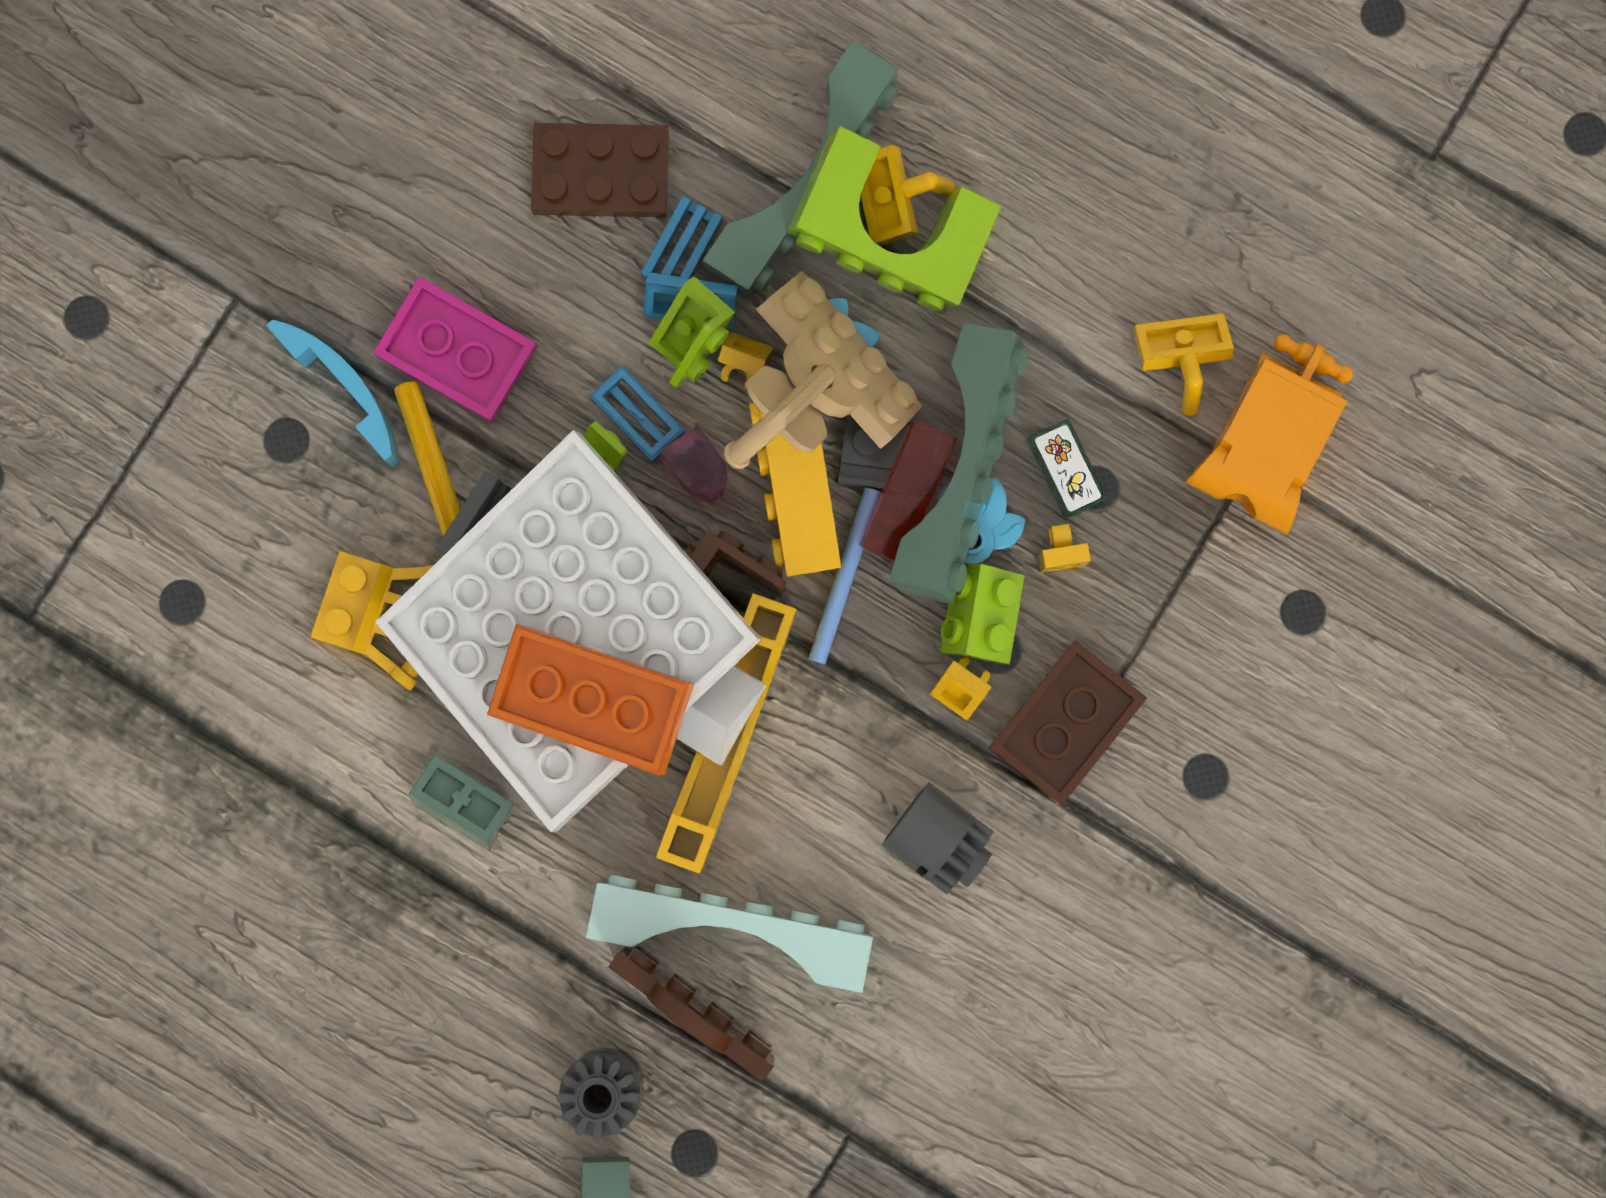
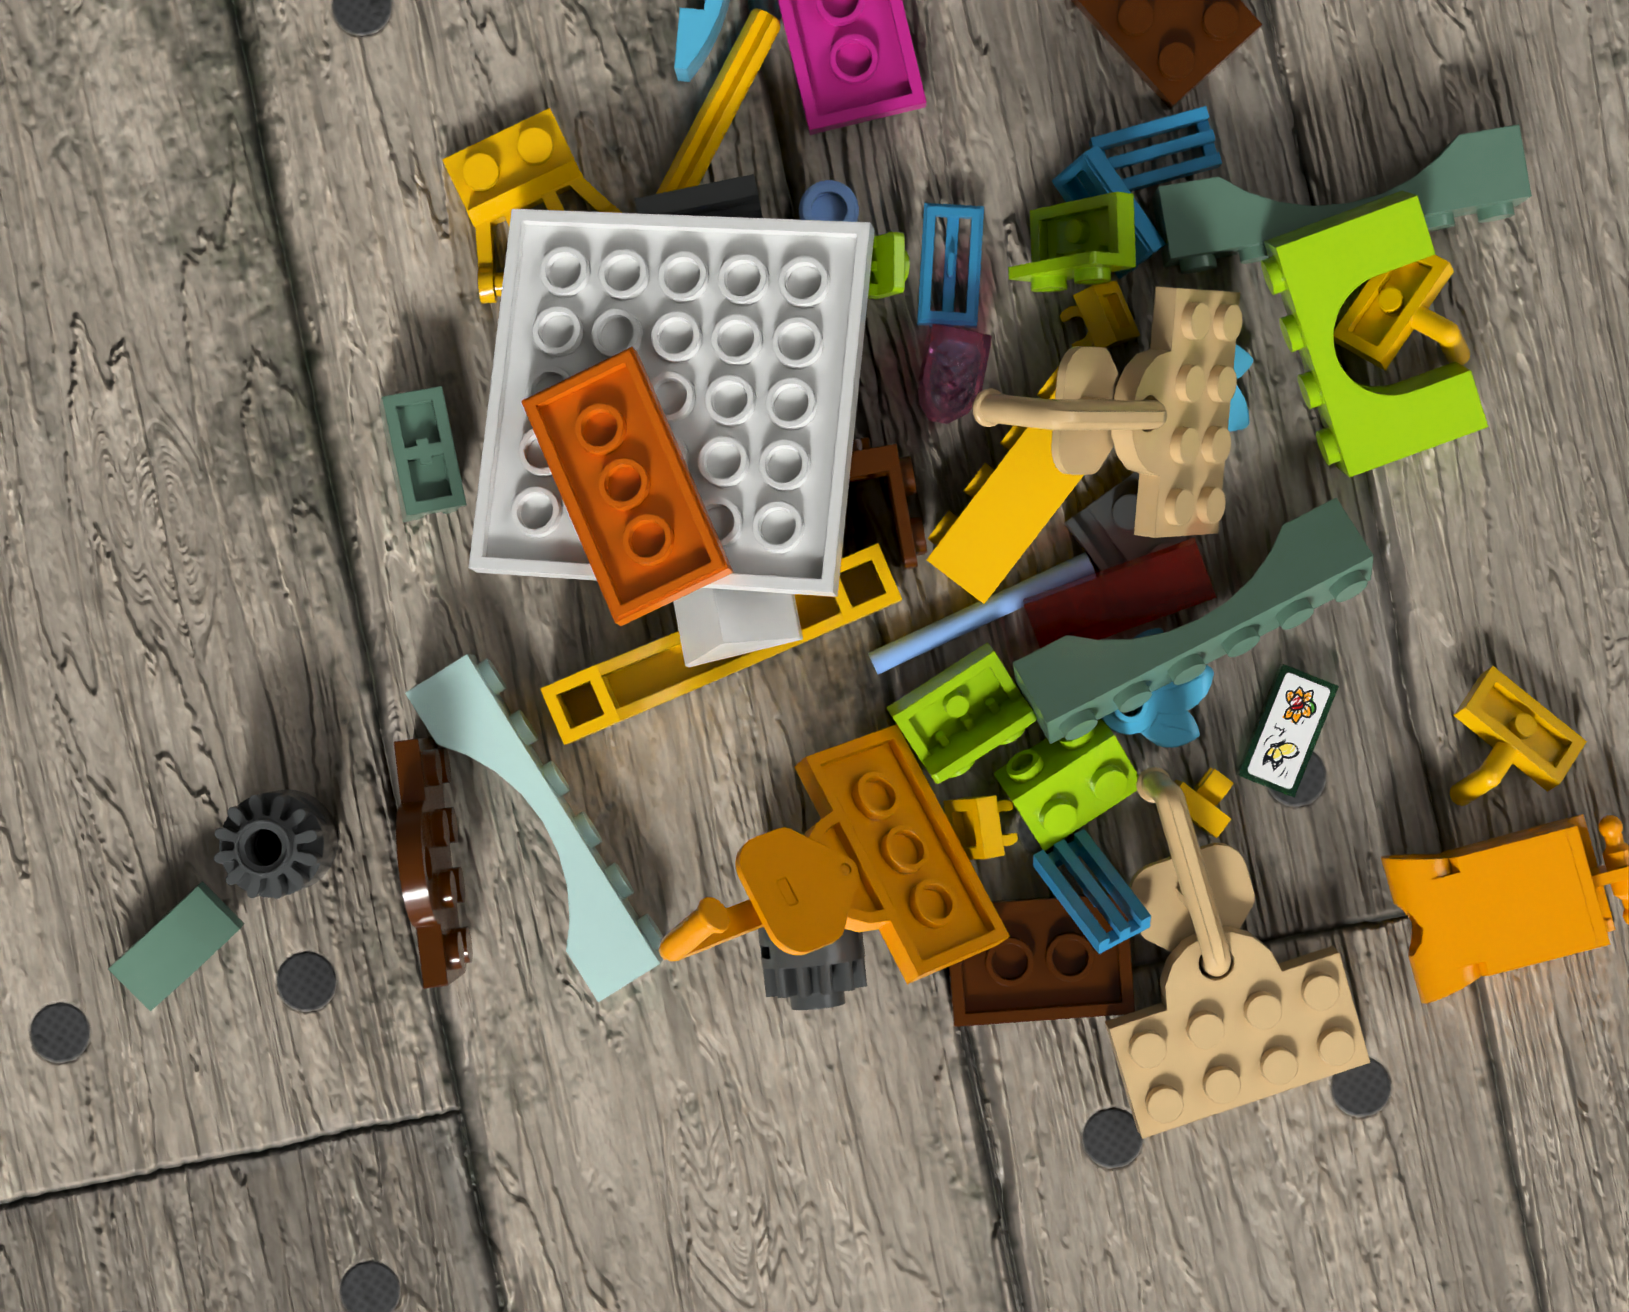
camera: 50 degrees right, 5 degrees up
(538, 446) = (829, 202): none -> light blue tile
(891, 637) = (962, 714): none -> lime bracket
(925, 765) = (869, 864): none -> light orange plate
(1026, 651) = (1068, 854): none -> dark azure tile
(1208, 642) = (1245, 1022): none -> tan plate

